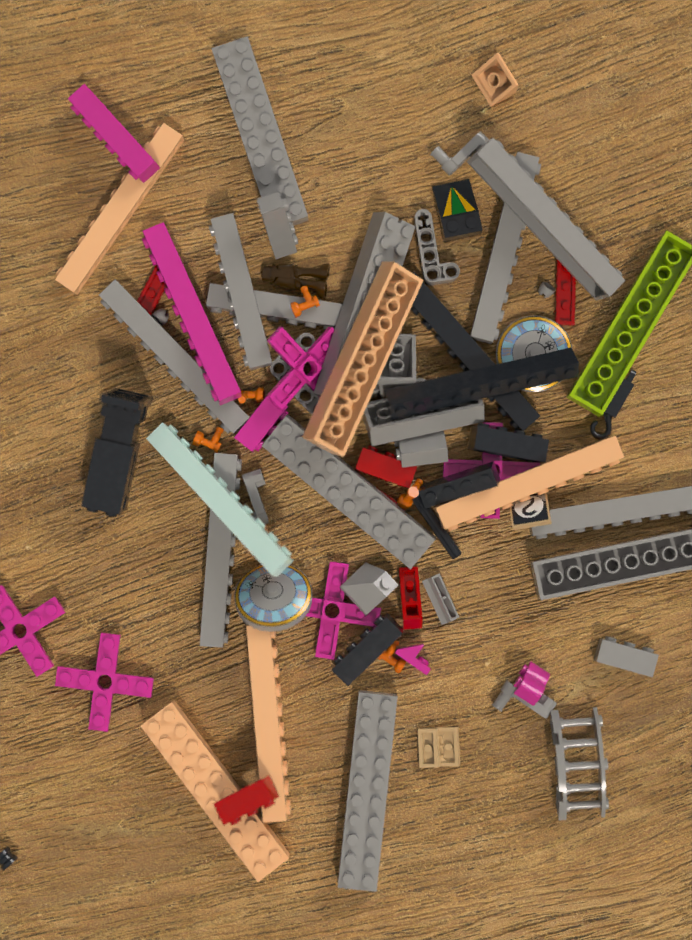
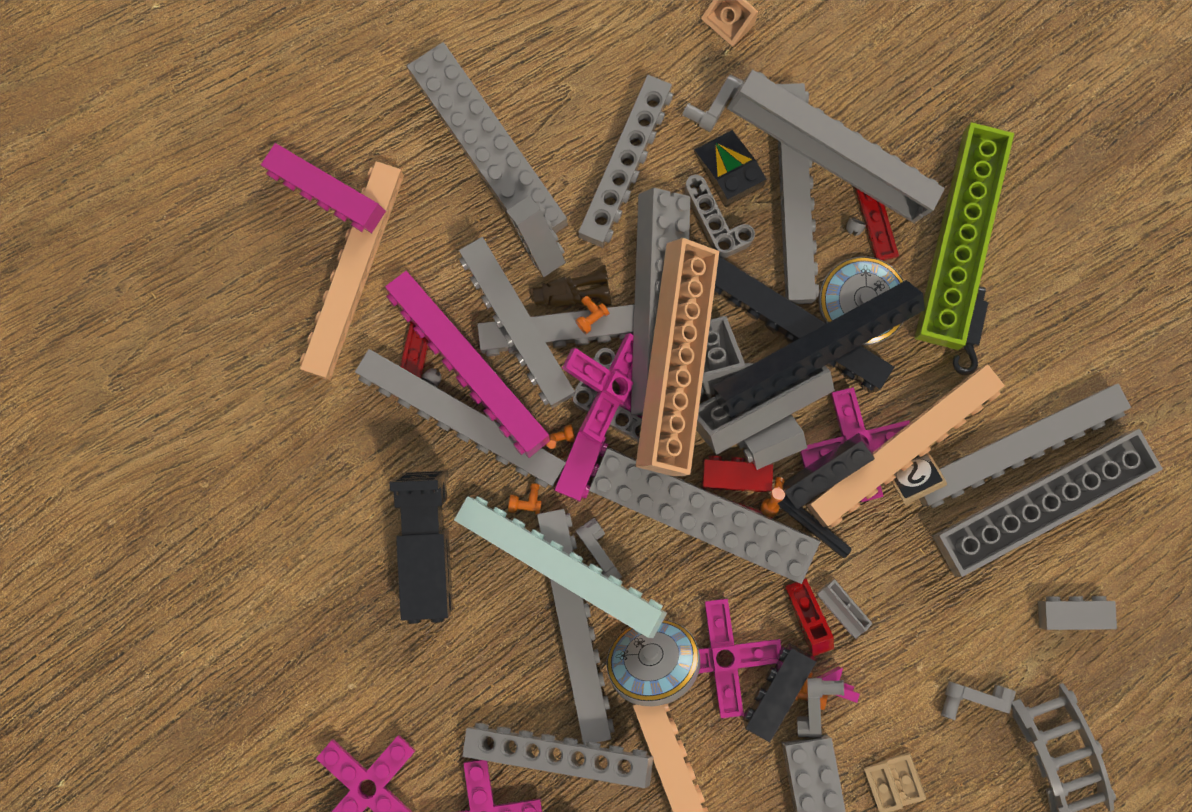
camera: 15 degrees left, 5 degrees down
(115, 623) = (477, 748): none -> light grey brick
(368, 587) = (759, 618): light grey slope -> none
(386, 682) = (811, 725): none -> light grey beam
(411, 126) = (652, 90): none -> light grey brick
(508, 444) = (868, 408): black brick -> none
(531, 683) = (980, 676): dark pink brick -> none

